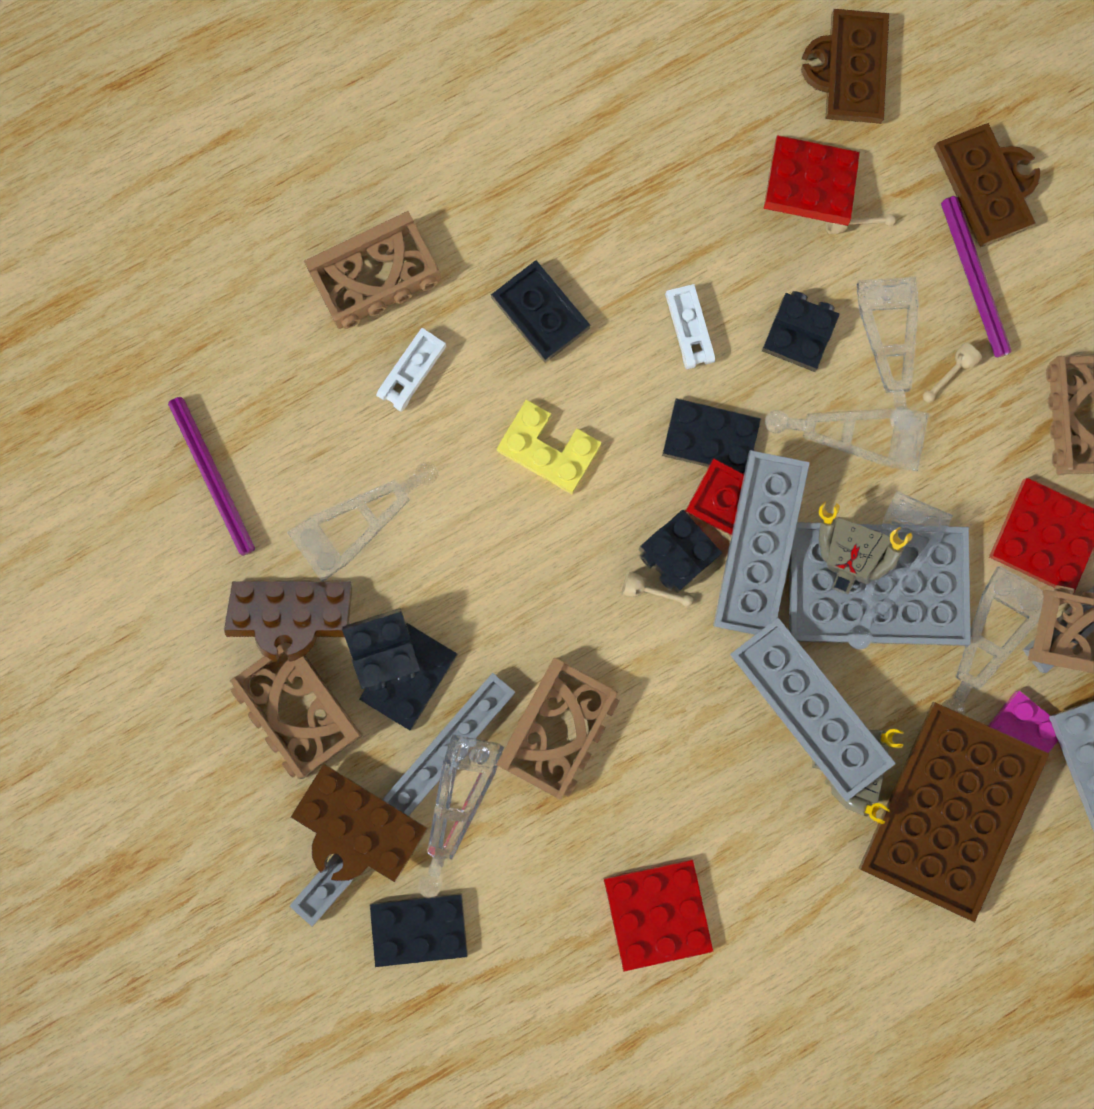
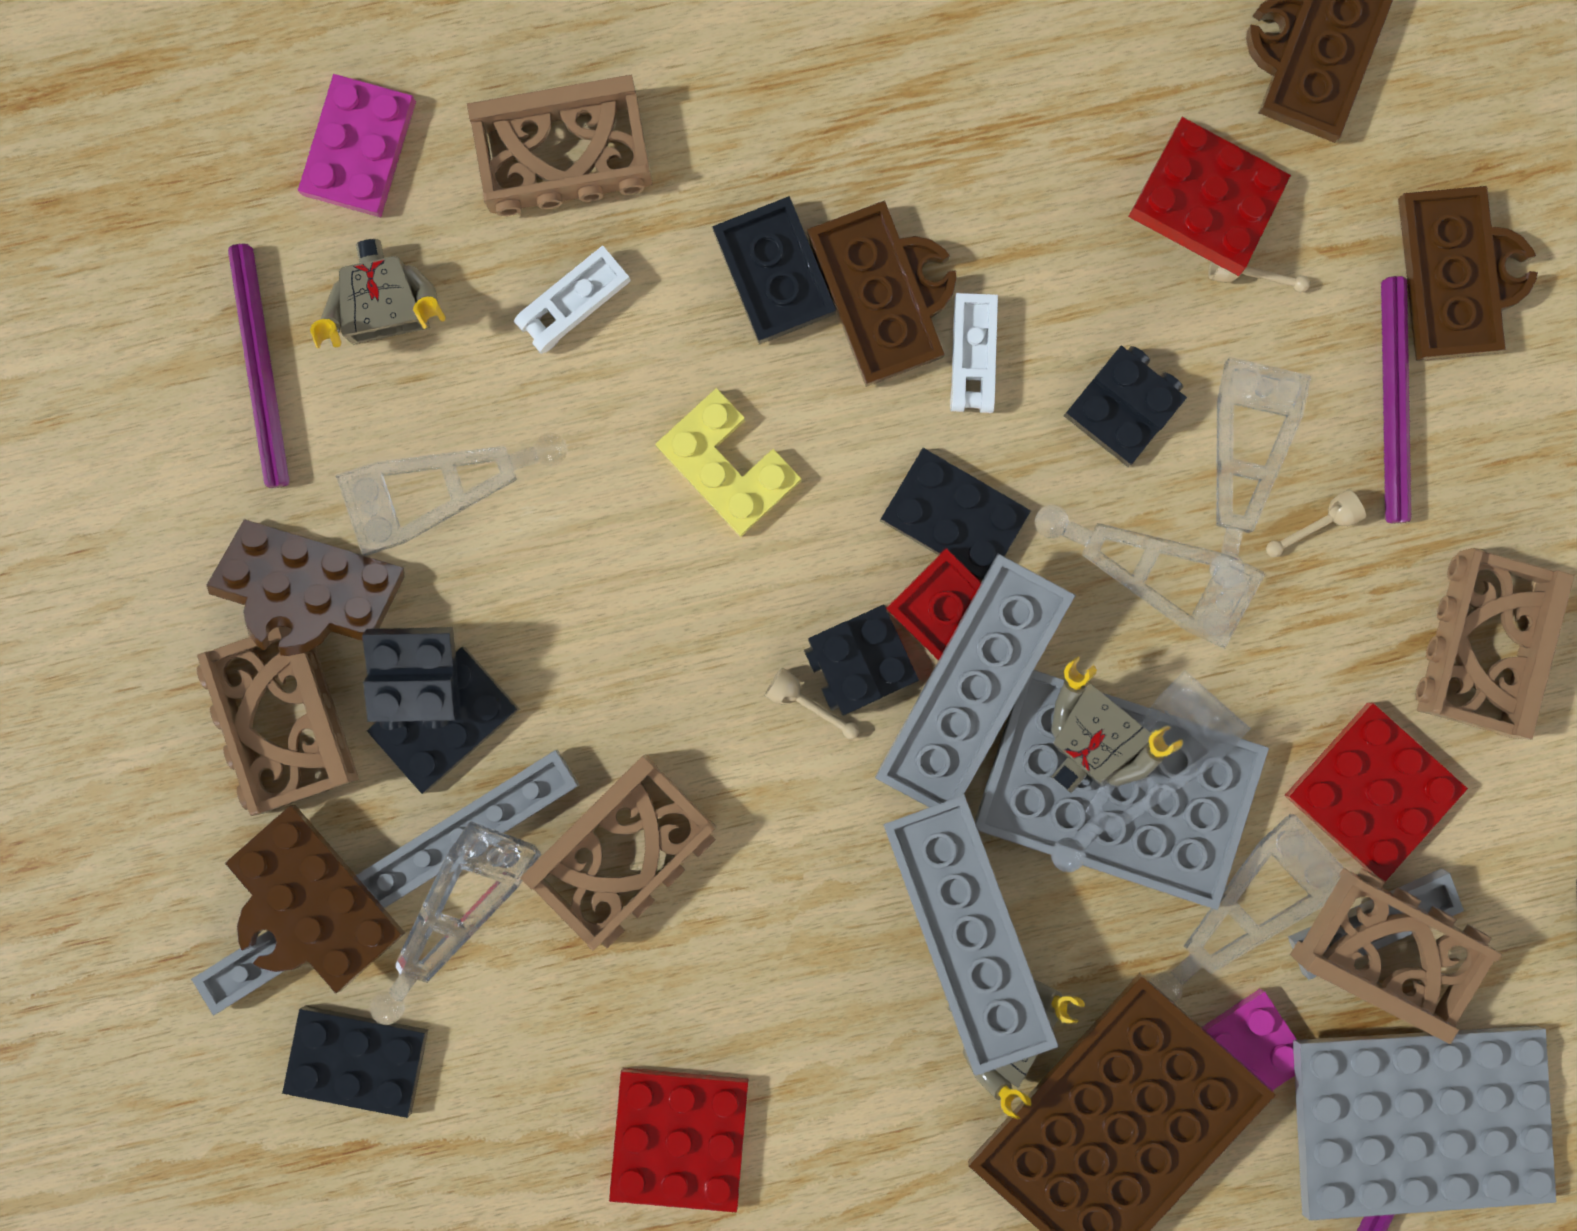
camera: 20 degrees right, 5 degrees up
(234, 311) = (357, 145): none -> dark pink plate
(281, 407) = (376, 300): none -> dark tan torso
(616, 303) = (882, 290): none -> reddish brown plate

